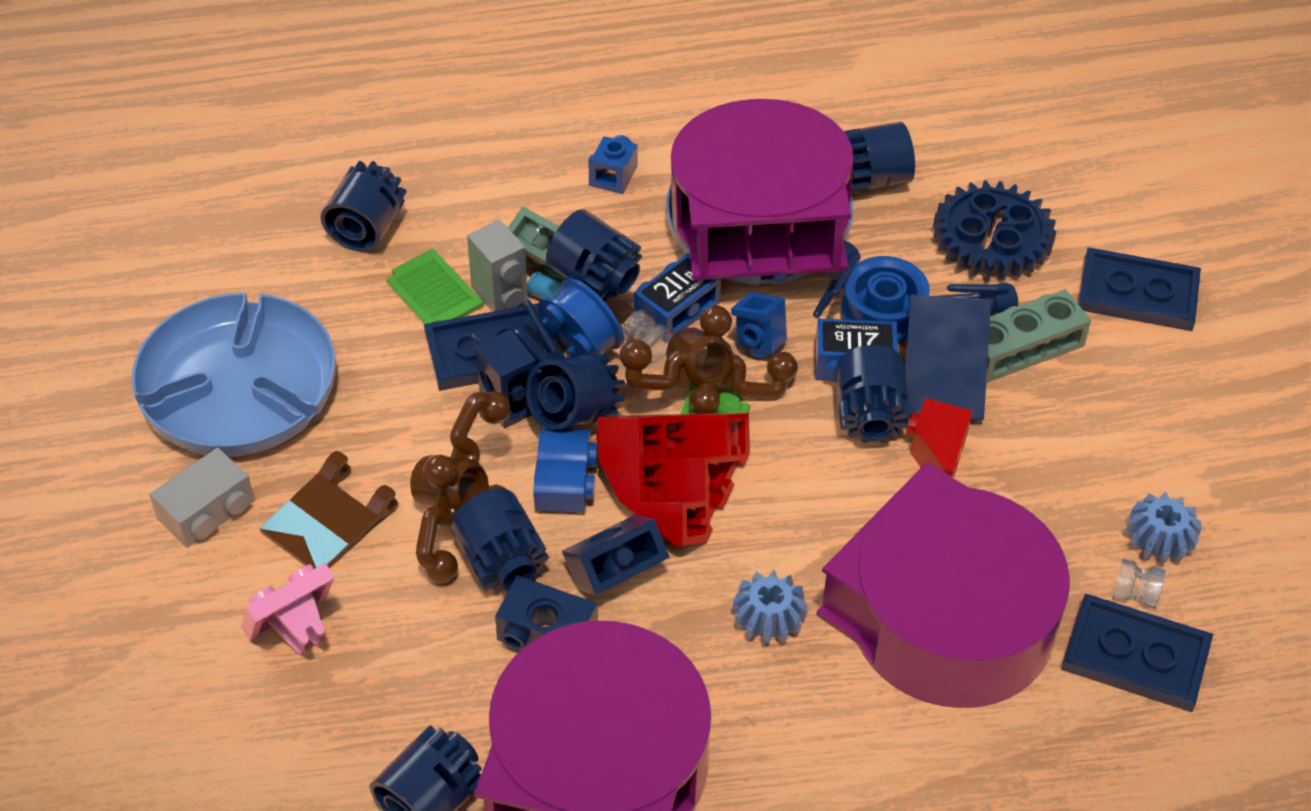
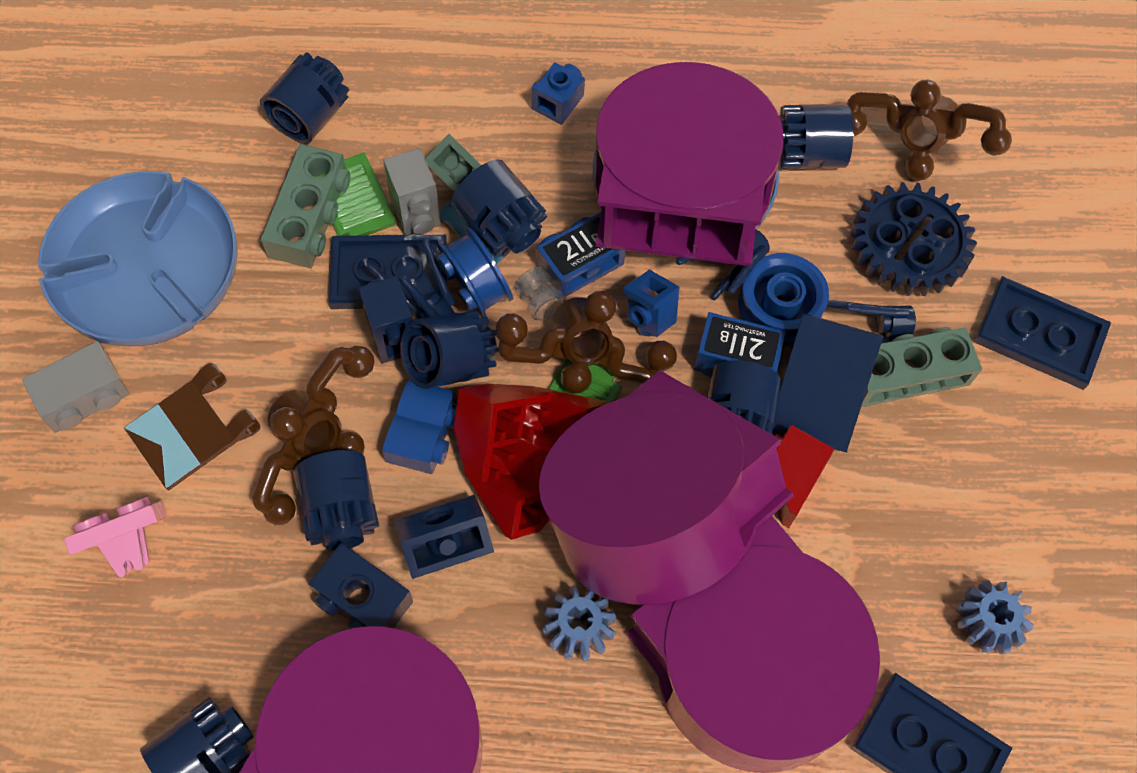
camera: 10 degrees right, 15 degrees up
(391, 301) = (298, 191): none -> sand green brick
(819, 463) = (659, 492): none -> magenta brick
(1001, 120) = (943, 111): none -> reddish brown wheel
(1148, 586) = (951, 677): clear wheel -> none

